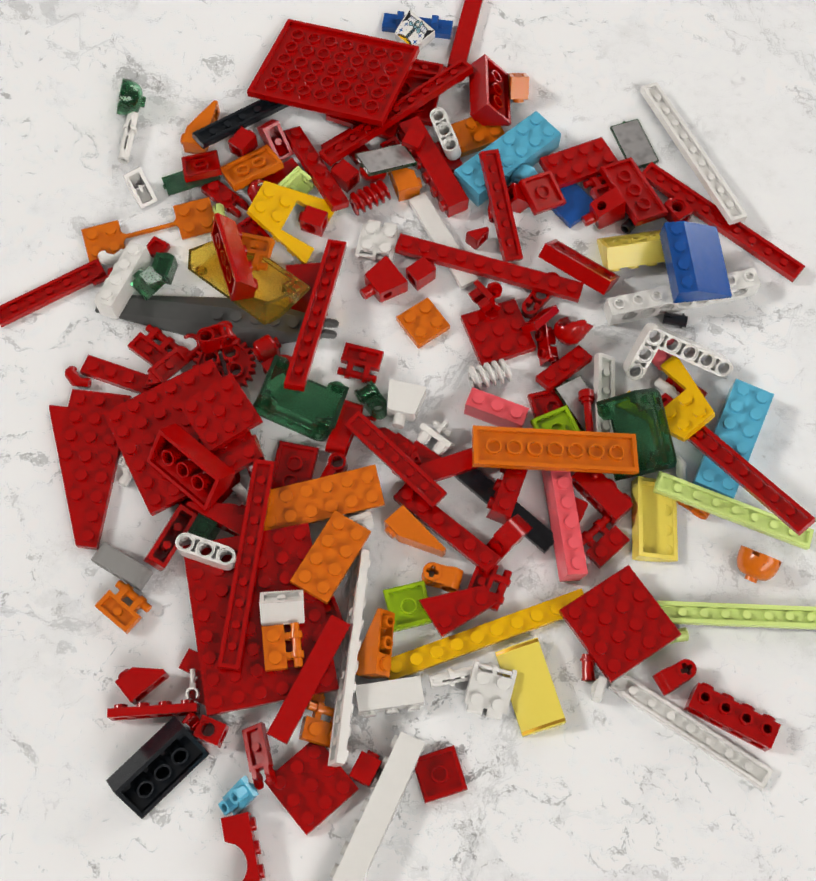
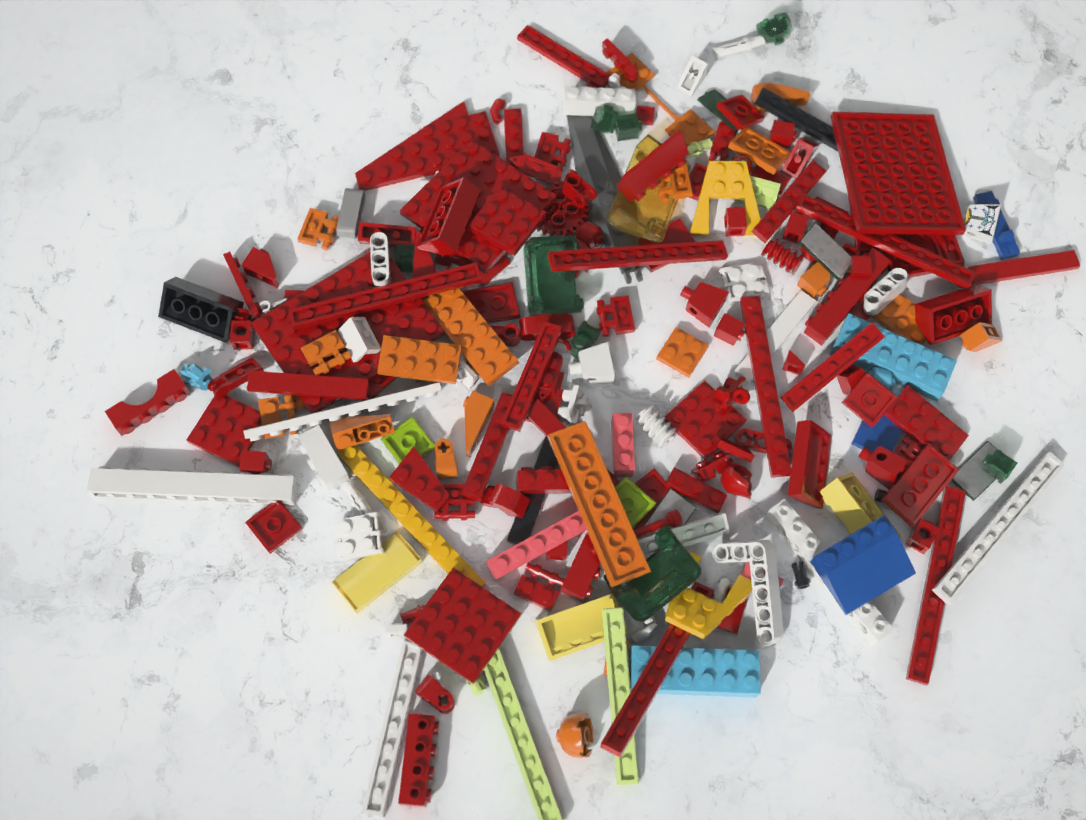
camera: 65 degrees right, 0 degrees up
(88, 241) = (620, 61): none -> red hinge
(640, 127) = (998, 465): none -> clear green brick

